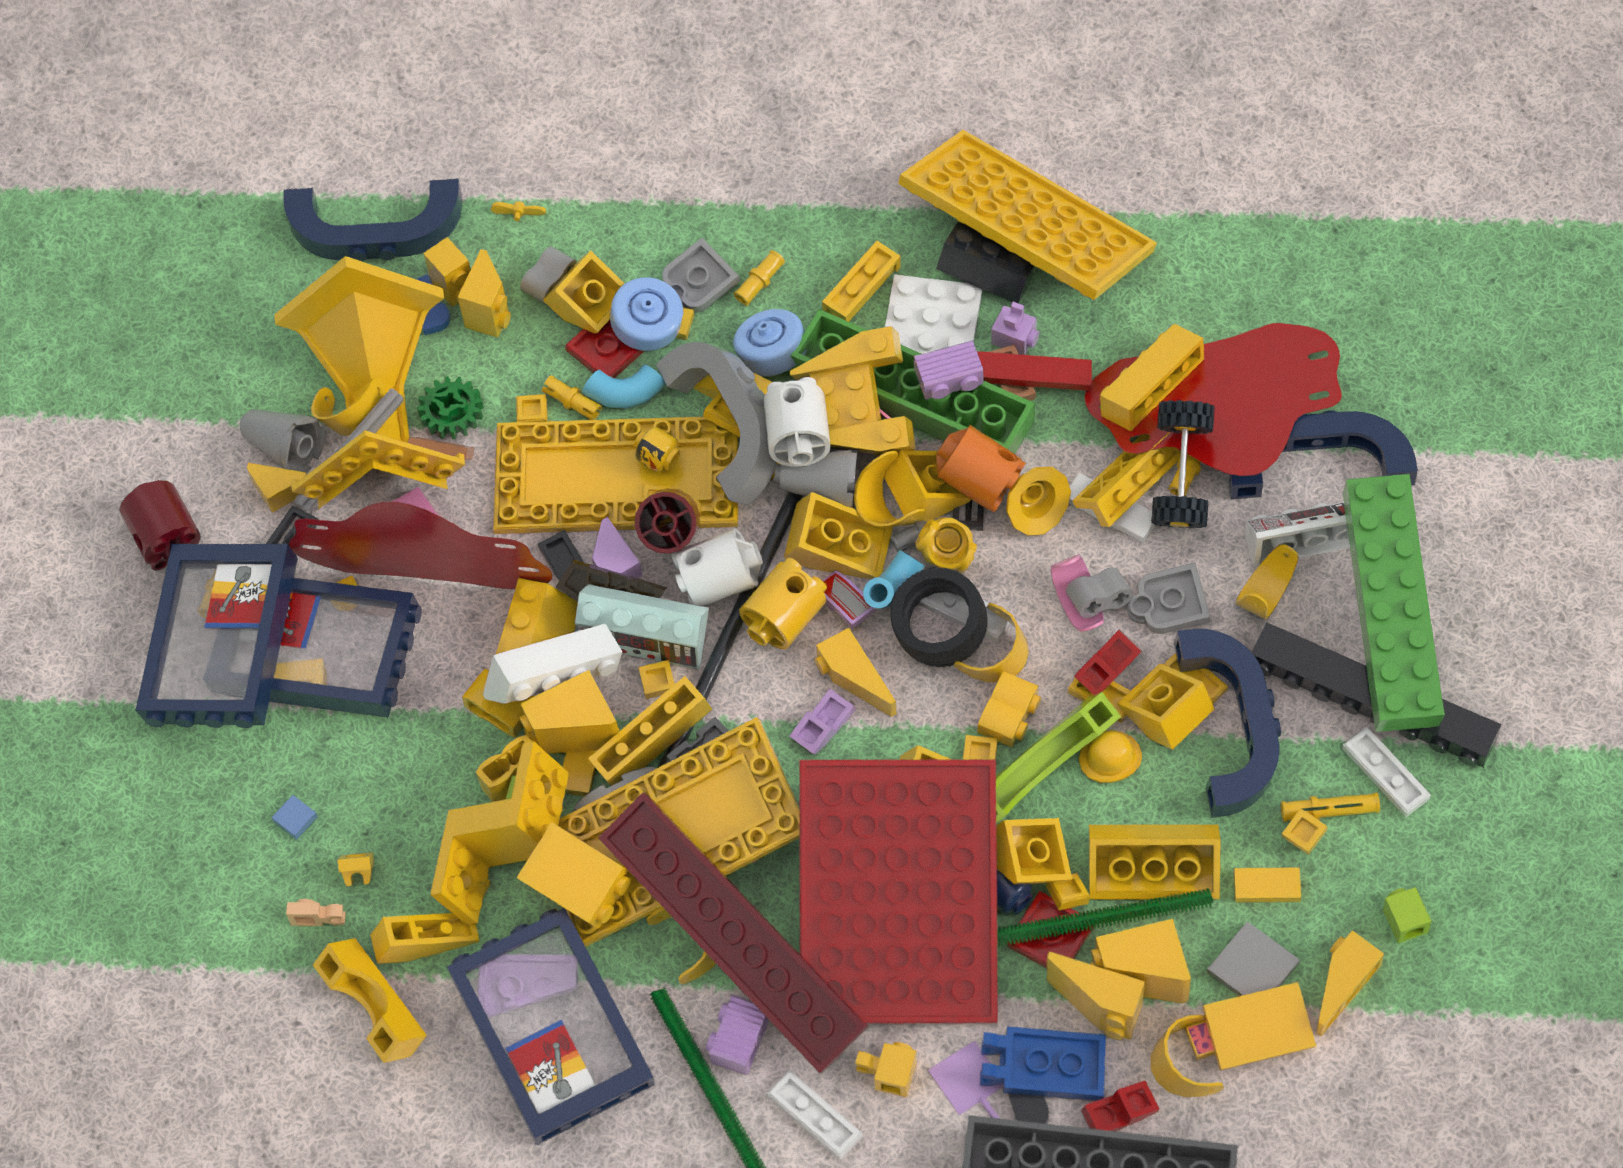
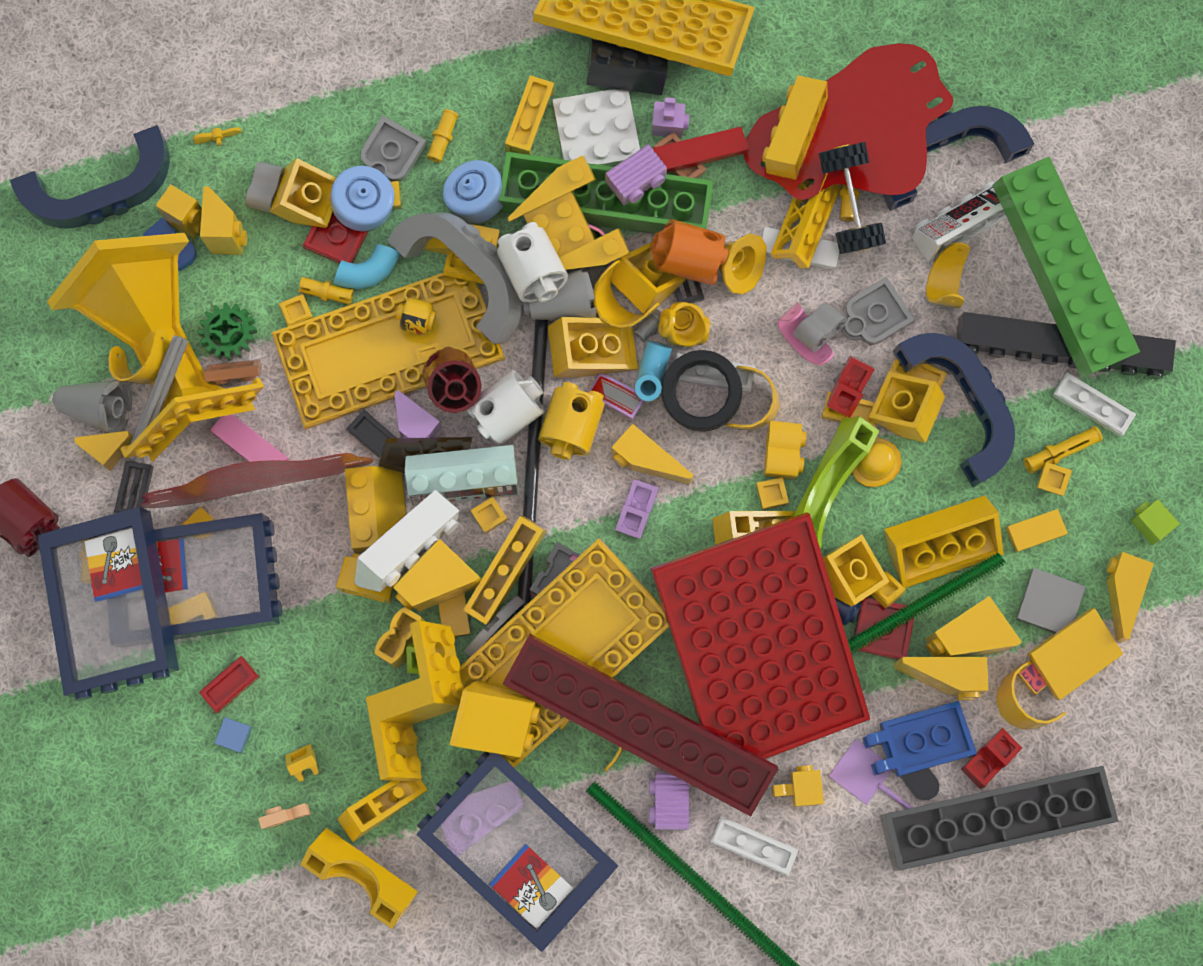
camera: 25 degrees left, 15 degrees up
(310, 765) = (229, 684): none -> red tile

